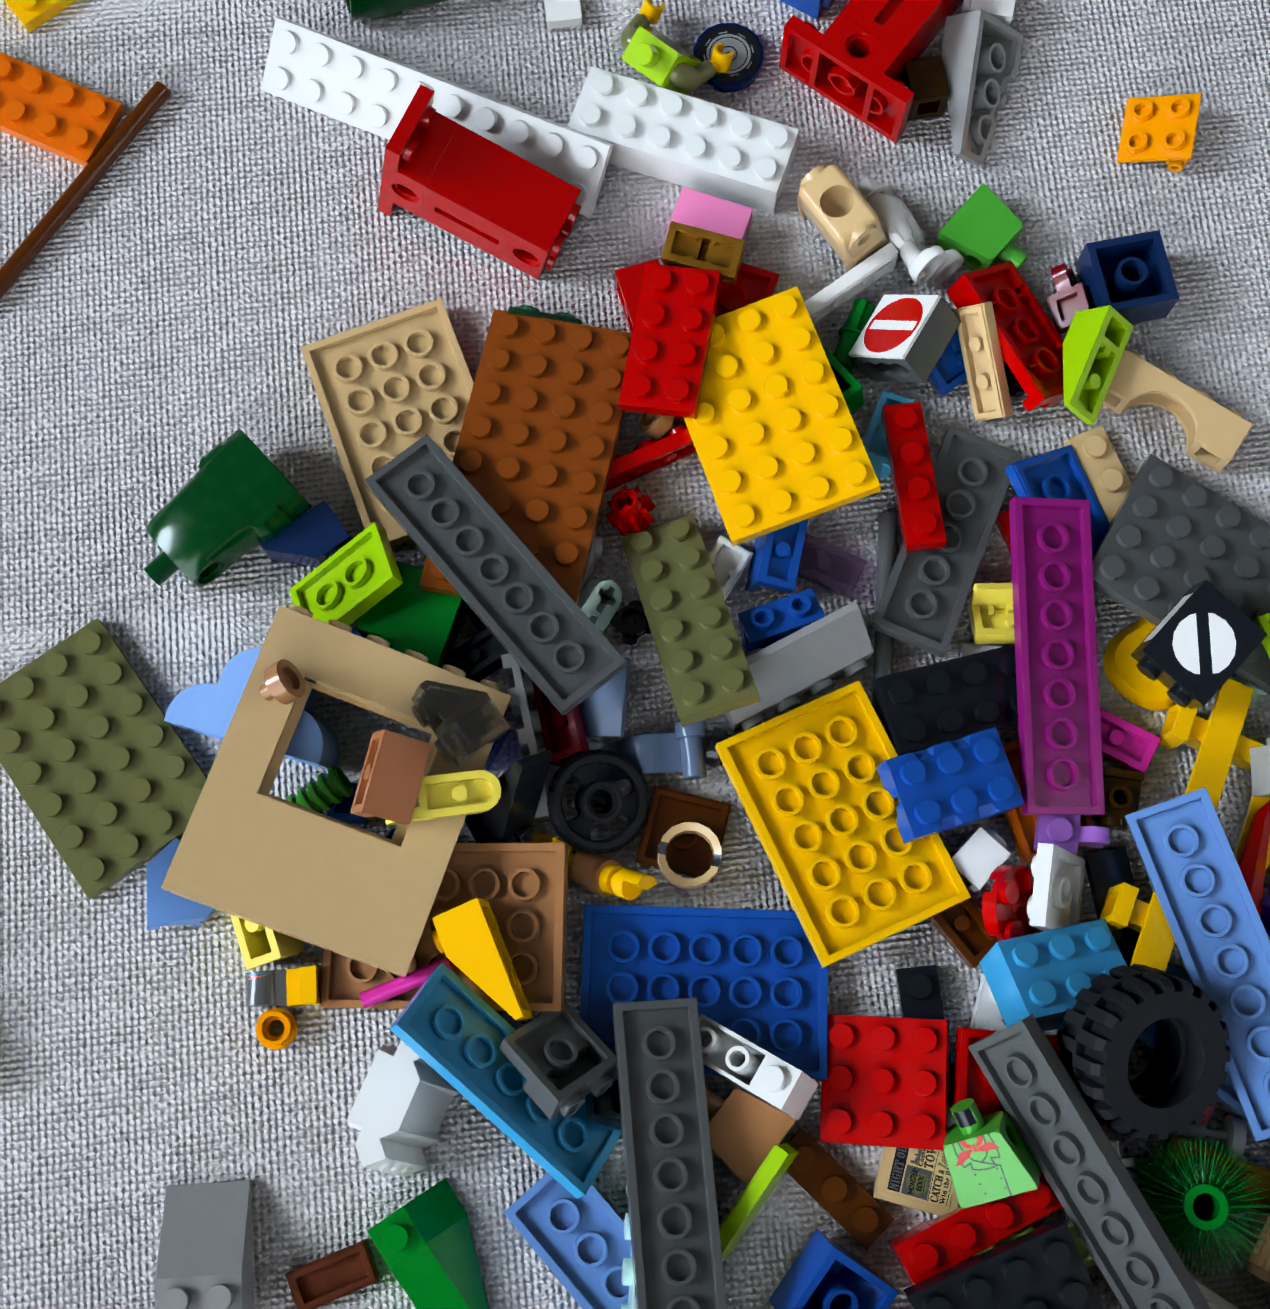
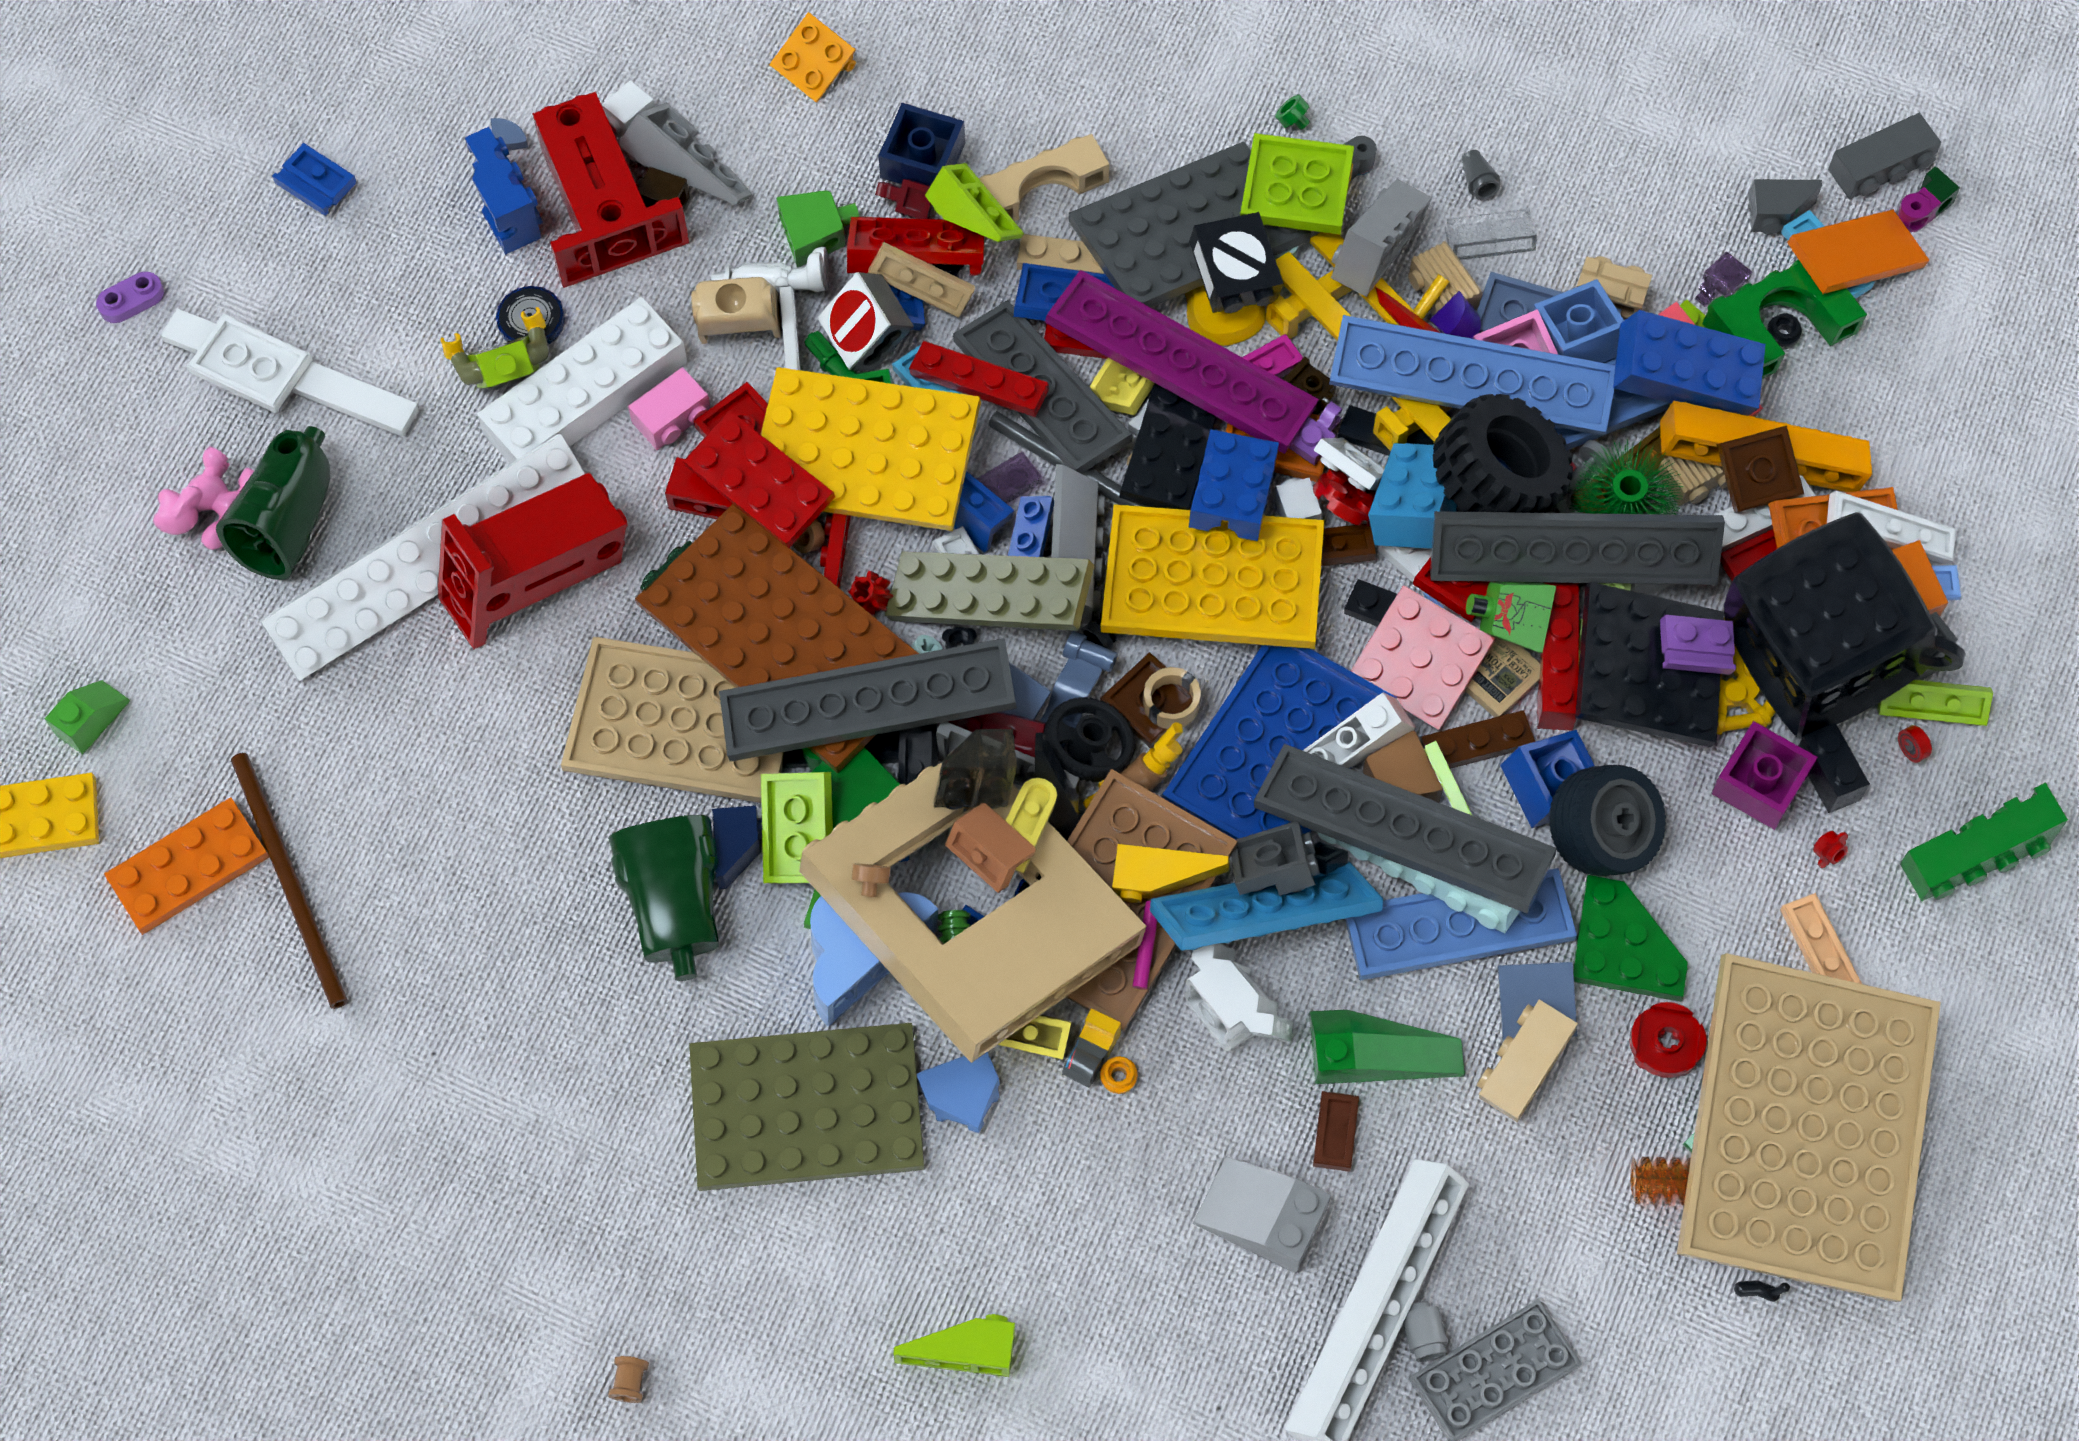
camera: 60 degrees left, 10 degrees down
(703, 249) = (698, 417): pearl gold brick -> none

